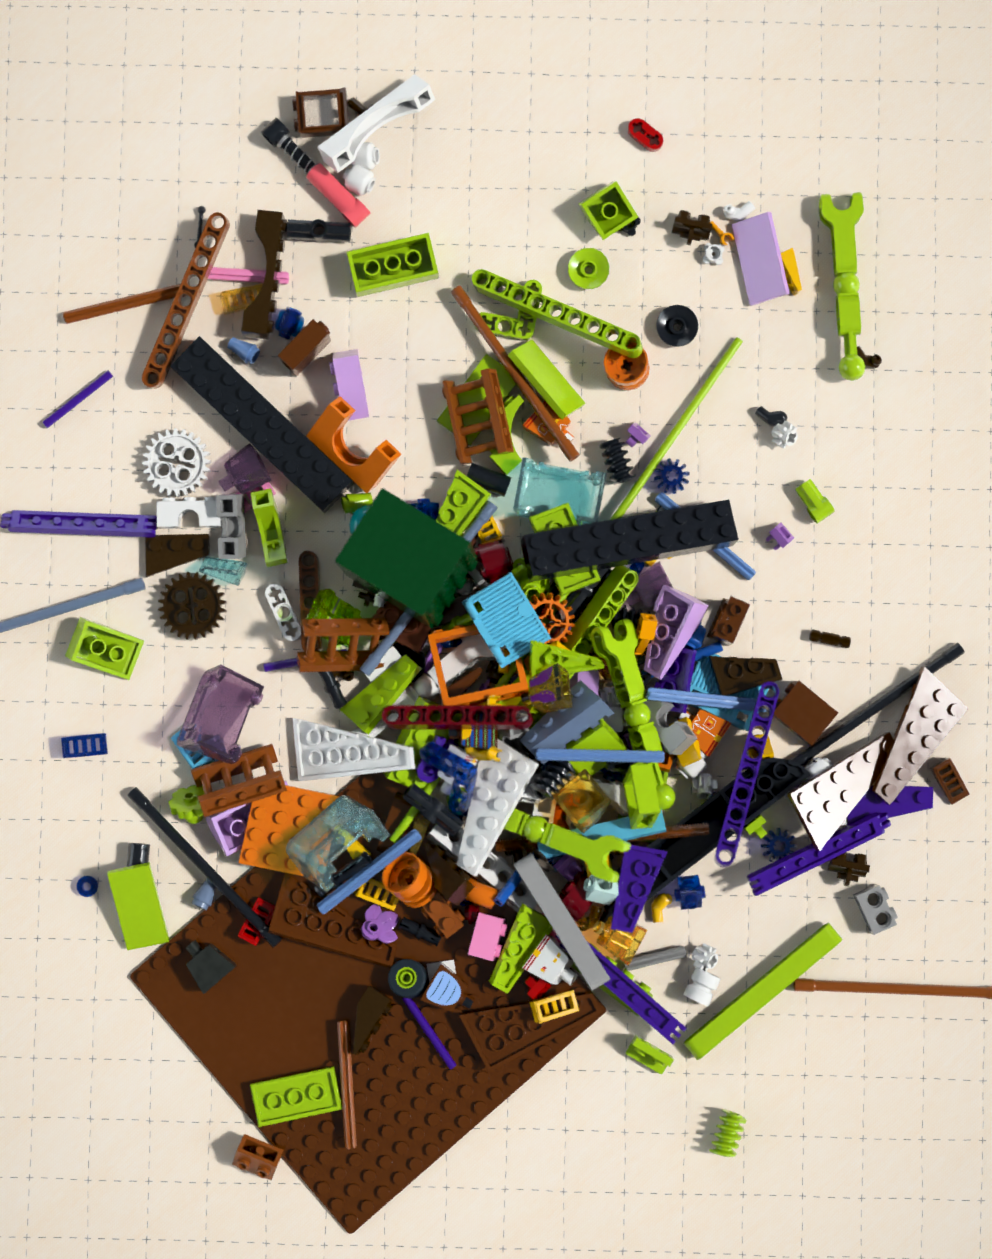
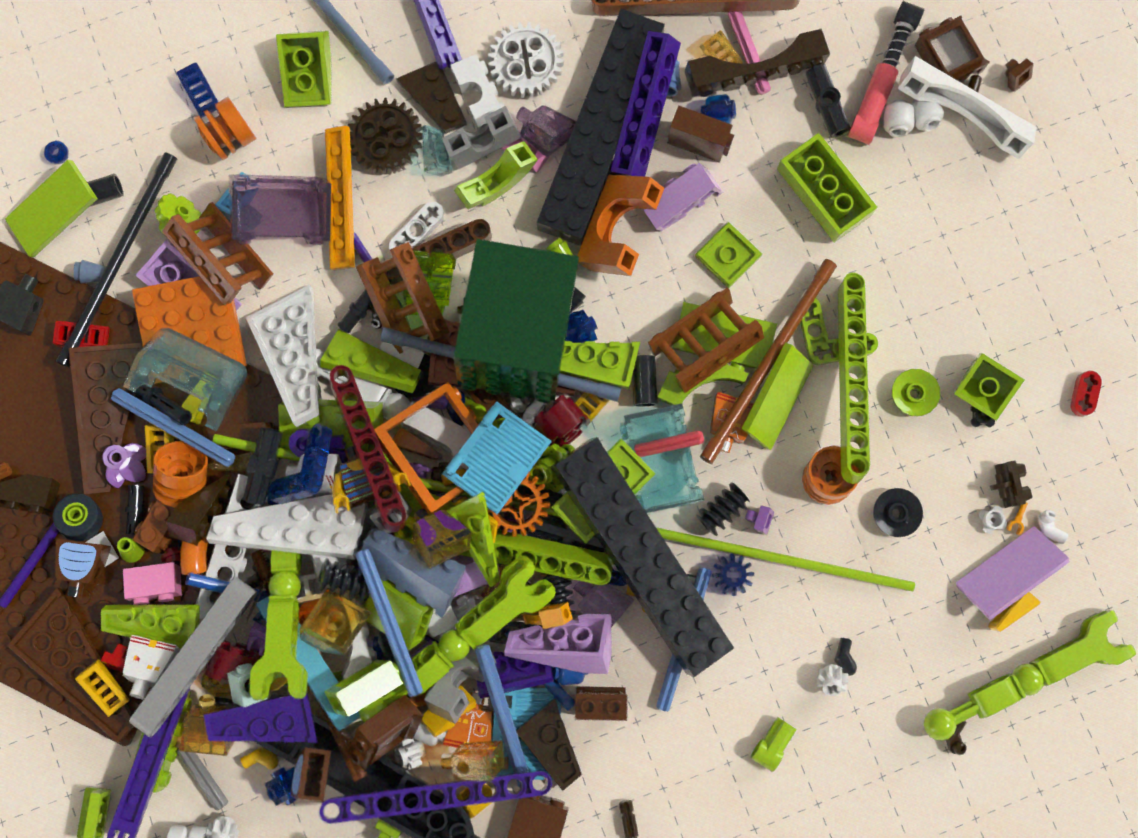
camera: 70 degrees right, 5 degrees down
(132, 734) = (224, 128): none -> orange wheel
(211, 656) = (339, 175): none -> light orange tile
(263, 381) = (646, 104): none -> dark purple brick
(362, 66) = (1018, 73): none -> reddish brown tile
(412, 367) = (728, 255): none -> lime tile
(457, 948) = (134, 551): none -> lime cone
(548, 481) = (669, 443): none -> coral axle
(681, 794) = (384, 732): none -> reddish brown window
(692, 865) = (310, 775): none -> reddish brown torso
(732, 735) = (475, 761): none -> clear yellow torso
(781, 535) = (720, 722): medium lavender tile -> none

